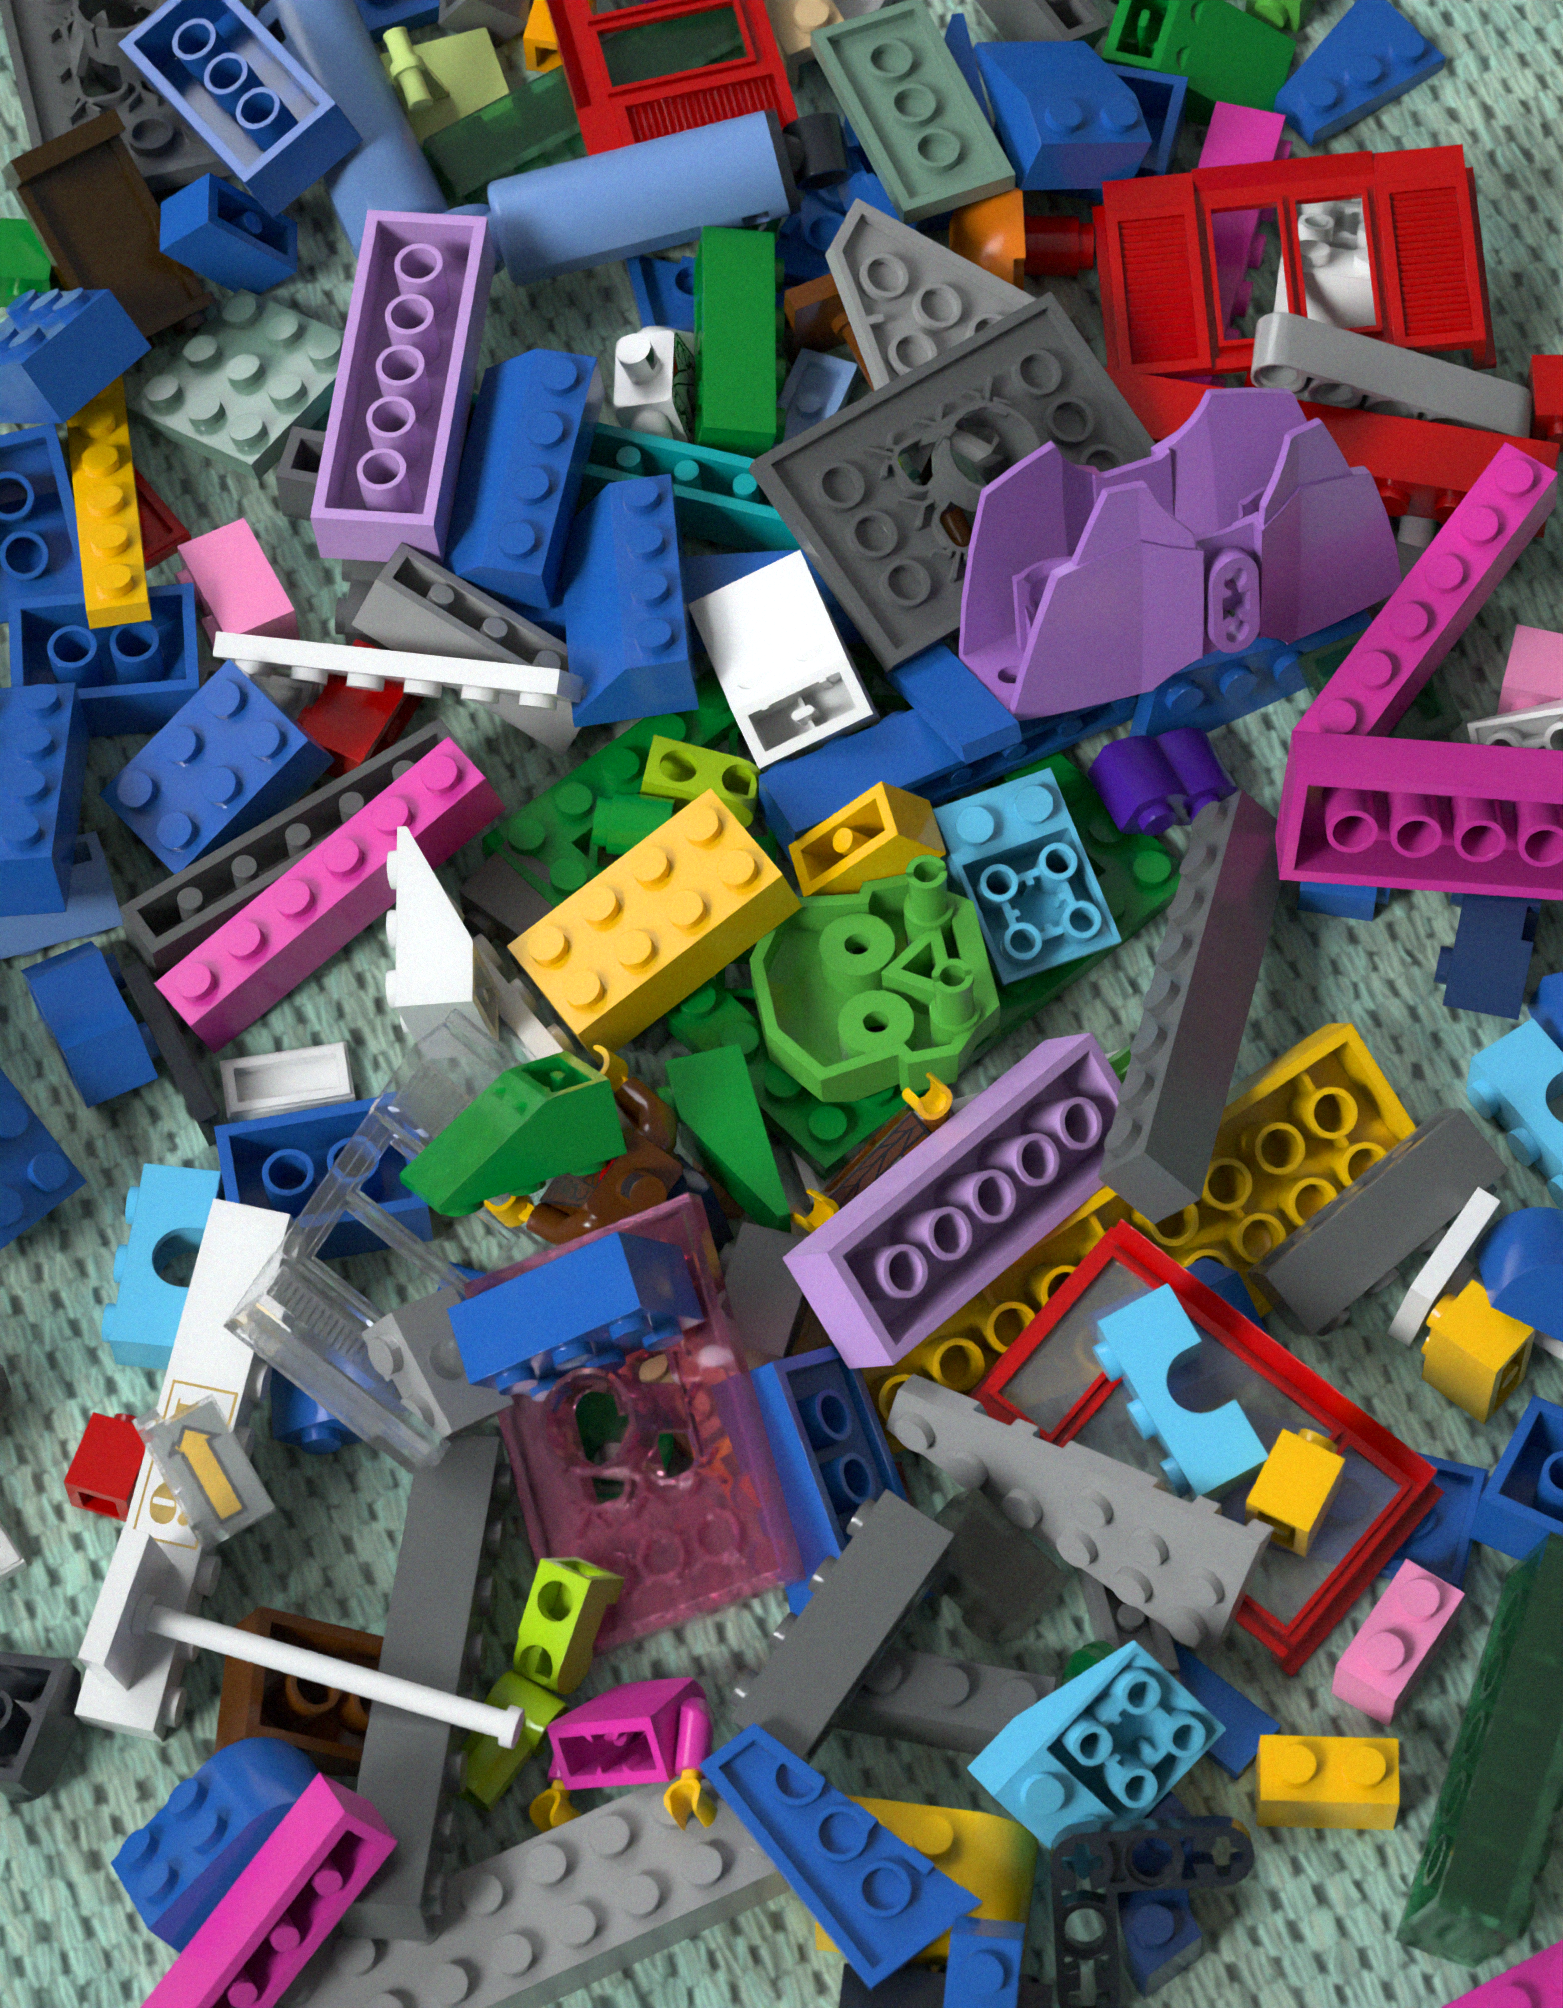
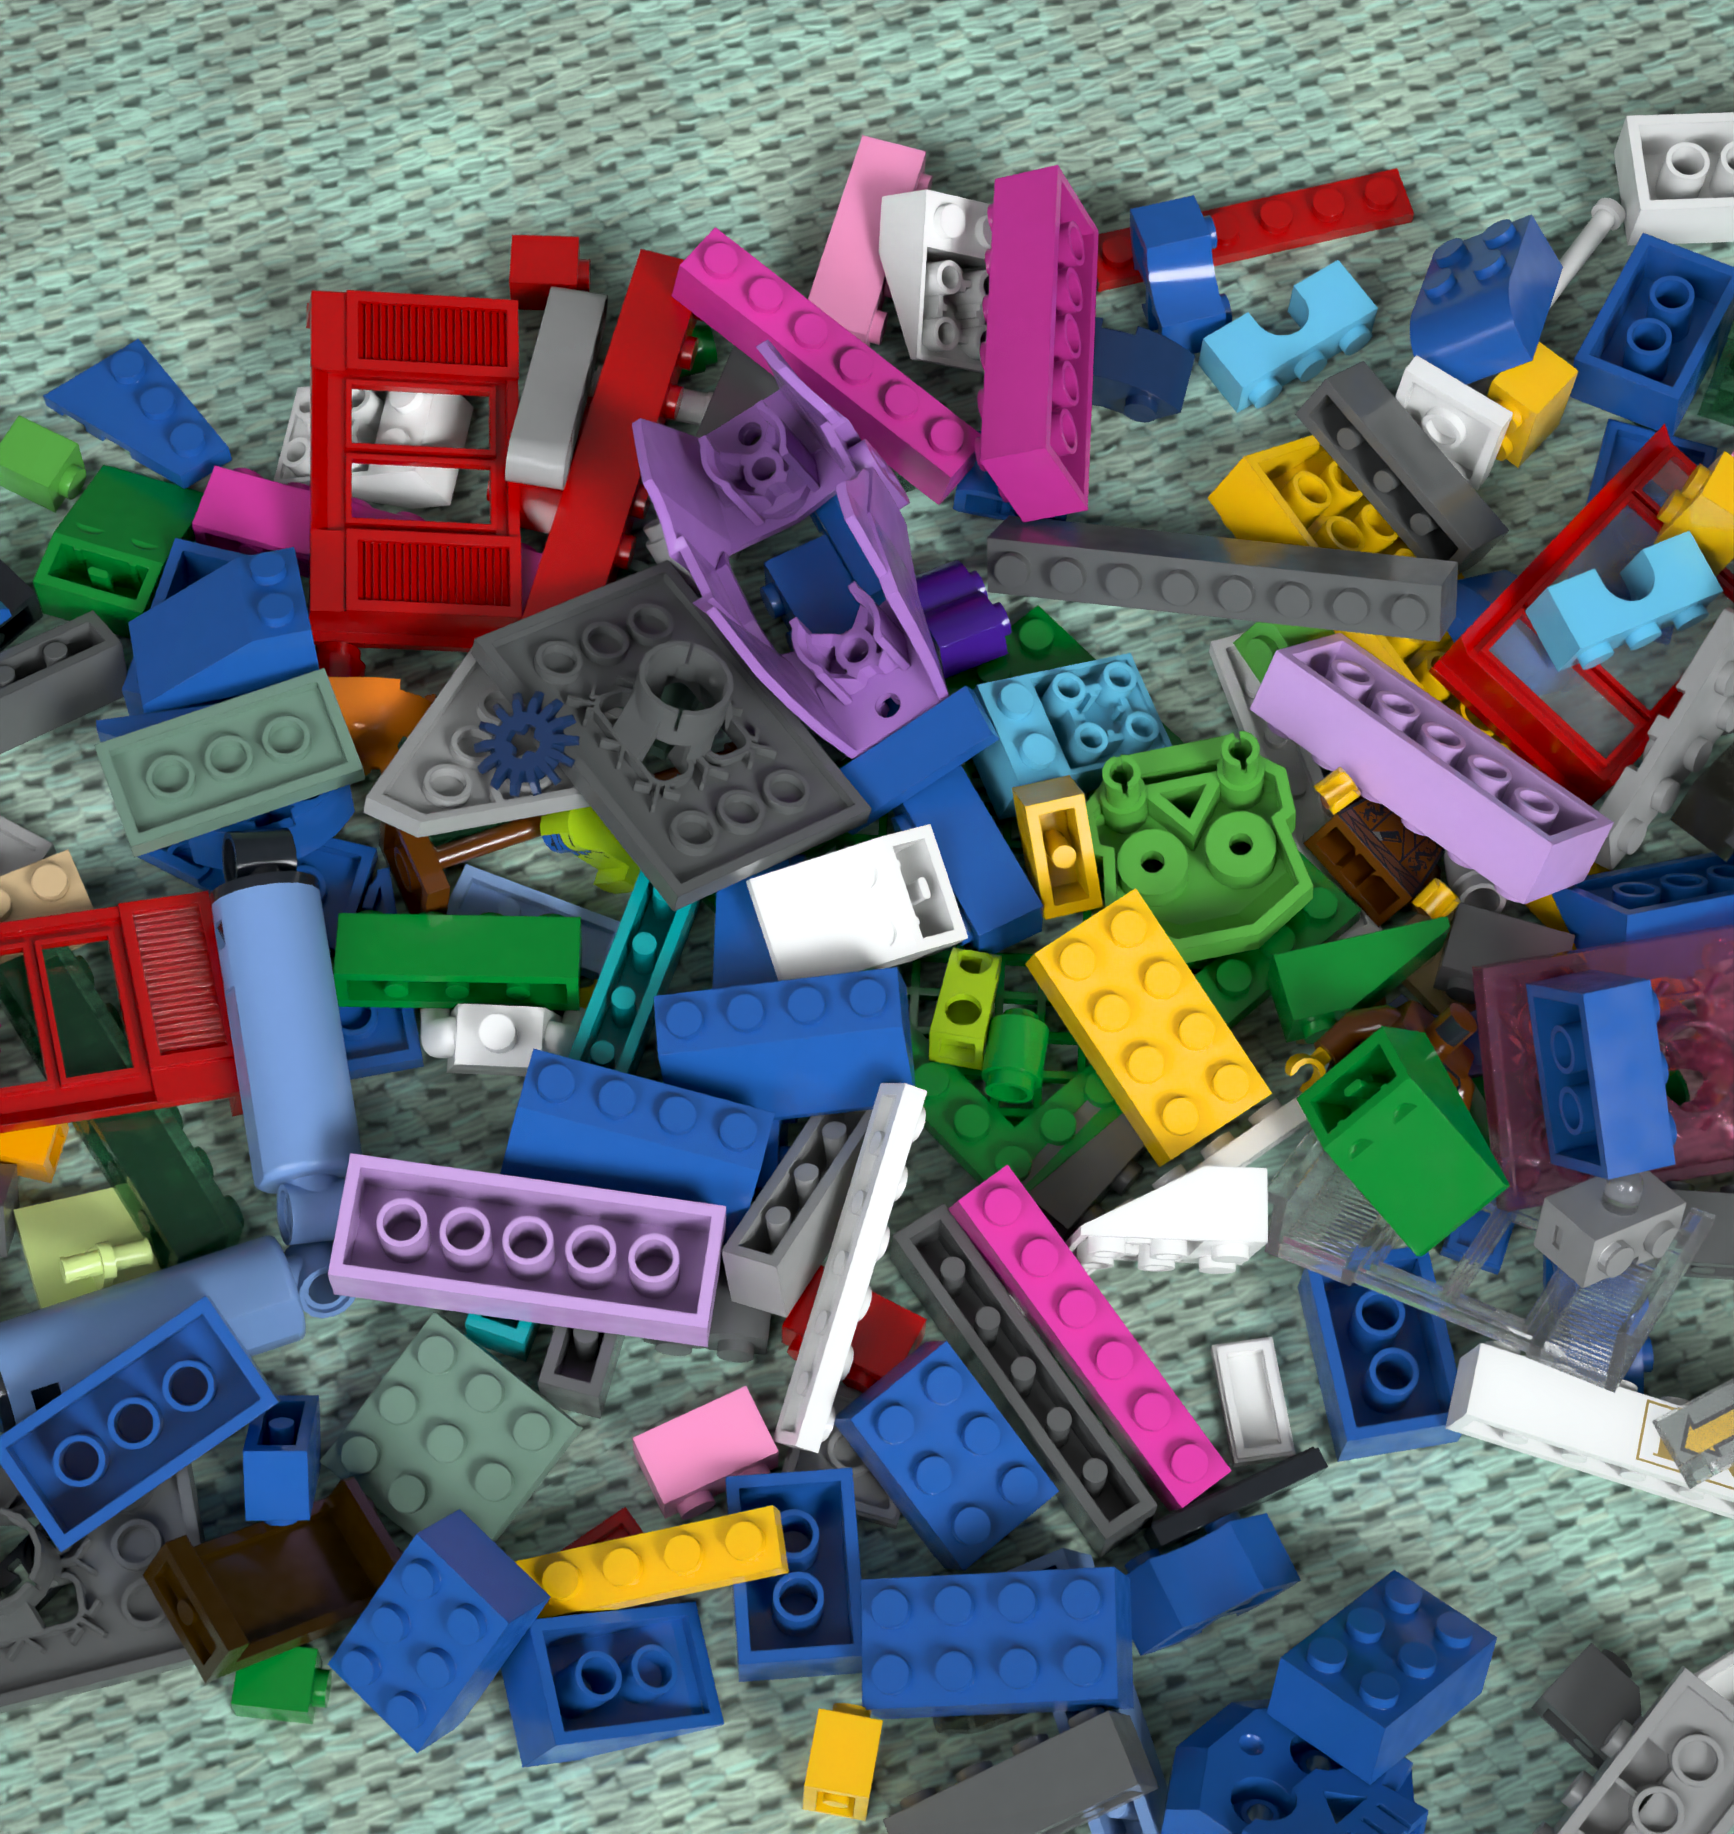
camera: 95 degrees left, 5 degrees up
(106, 1466) = (1672, 1545): red brick -> none
(166, 1221) = (1410, 1504): medium azure arch -> none
(898, 337) = (532, 765): none -> dark blue gear

